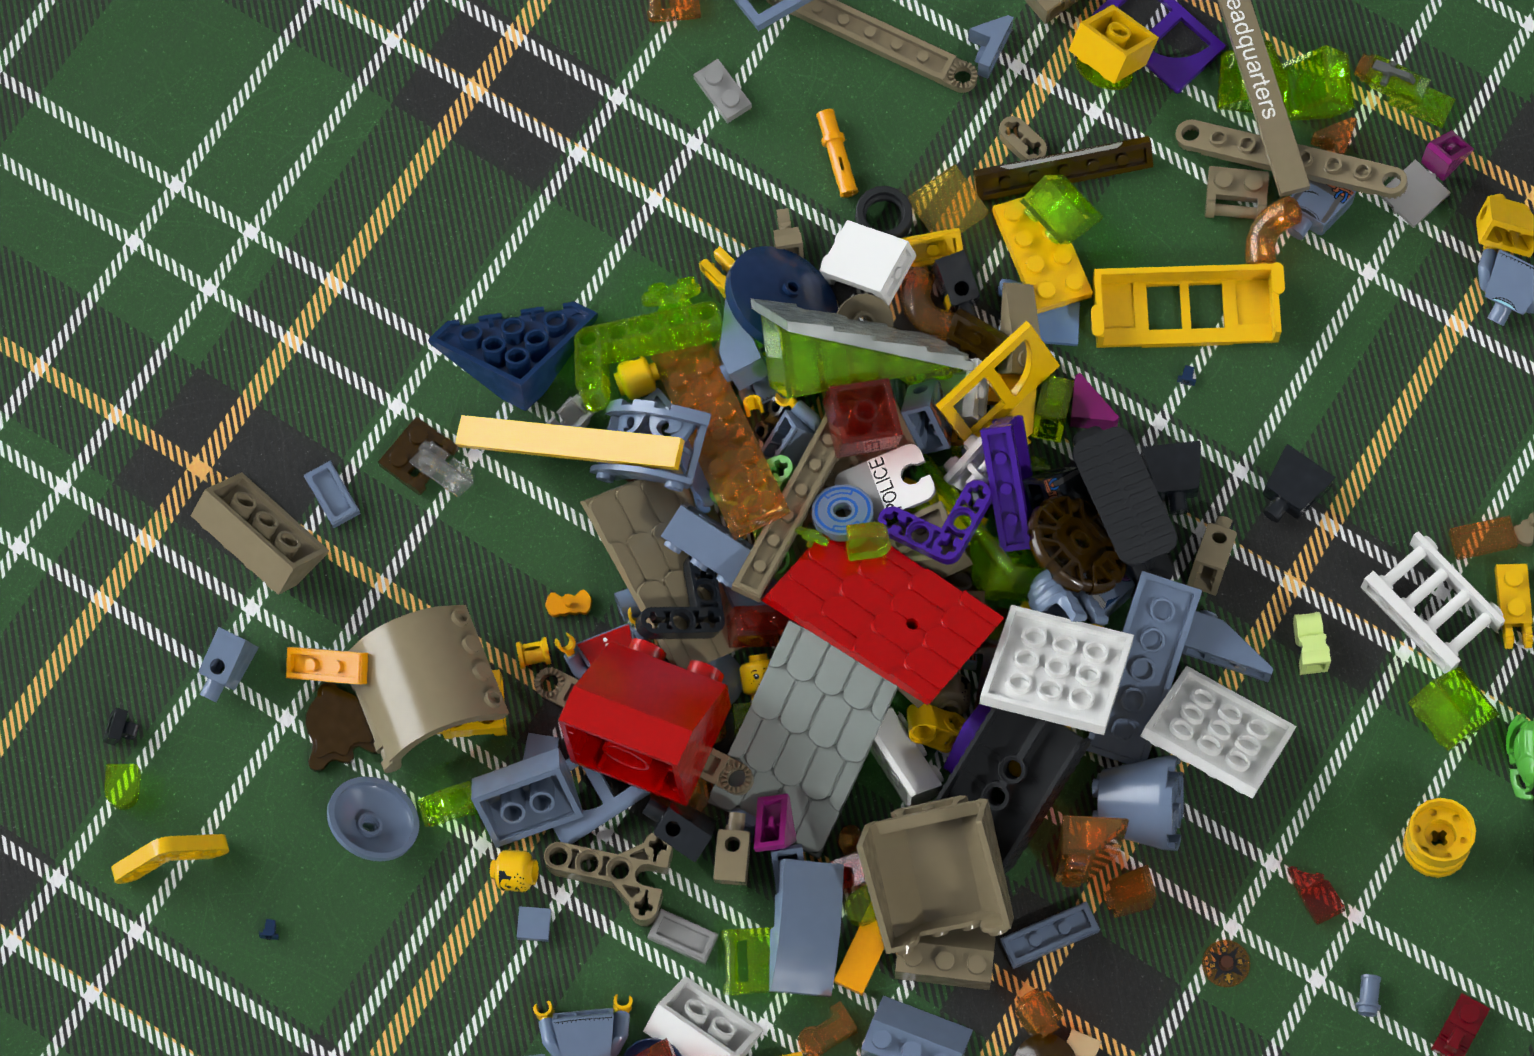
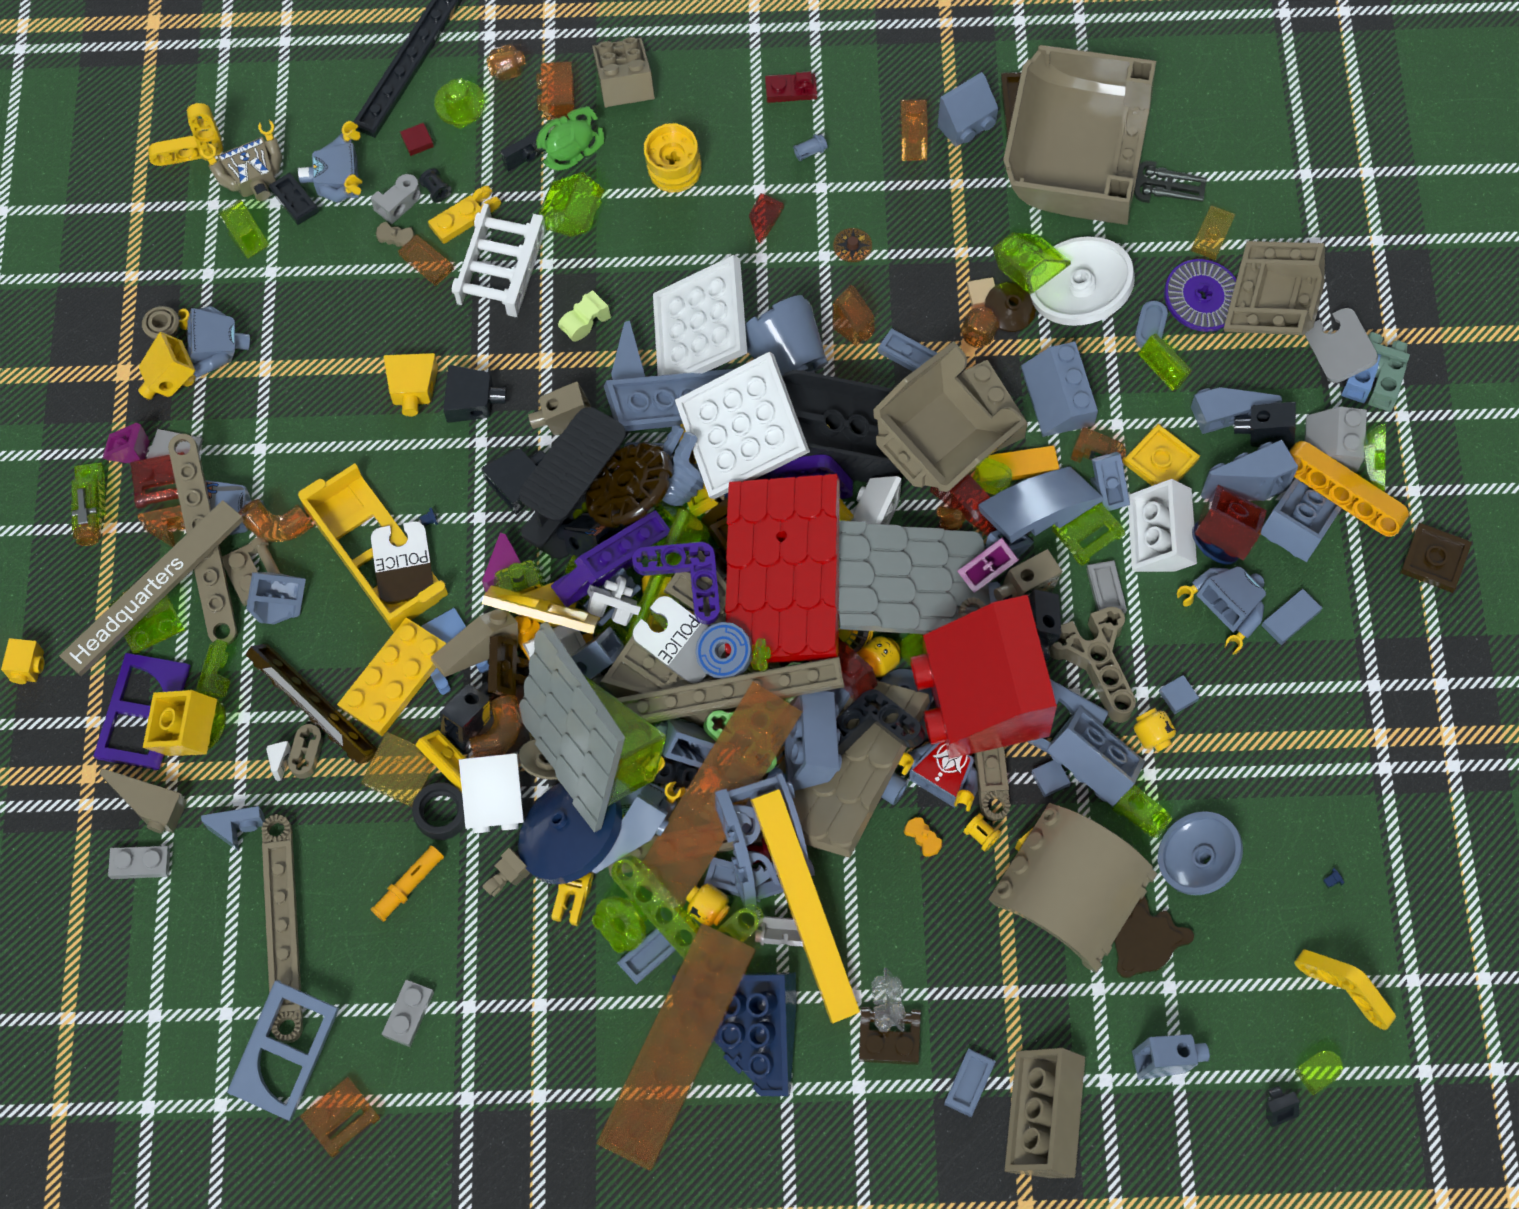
camera: 125 degrees left, 5 degrees down
(327, 665) = (1113, 972): light orange tile -> none
(531, 271) = (676, 1047): none -> clear orange plate
(628, 298) = (646, 957): none -> sand blue tile
(783, 1014) = (1110, 481): none -> sand blue slope
(862, 417) = (641, 677): clear red brick -> none
(867, 540) = (738, 611): clear neon green piece -> none
(1027, 110) = (278, 758): none -> white slope
(1060, 209) = (353, 673): clear neon green slope -> none
(1086, 847) = (851, 341): clear orange slope -> none
(1145, 97) = (210, 682): none -> clear neon green hinge
(1146, 322) = (404, 569): none -> piece
(1192, 192) = (274, 597): none -> sand blue slope
(1318, 84) = (119, 562): clear neon green slope -> none
(1346, 439) = (411, 380): none -> yellow torso
(1402, 154) = (150, 474): none -> clear red plate

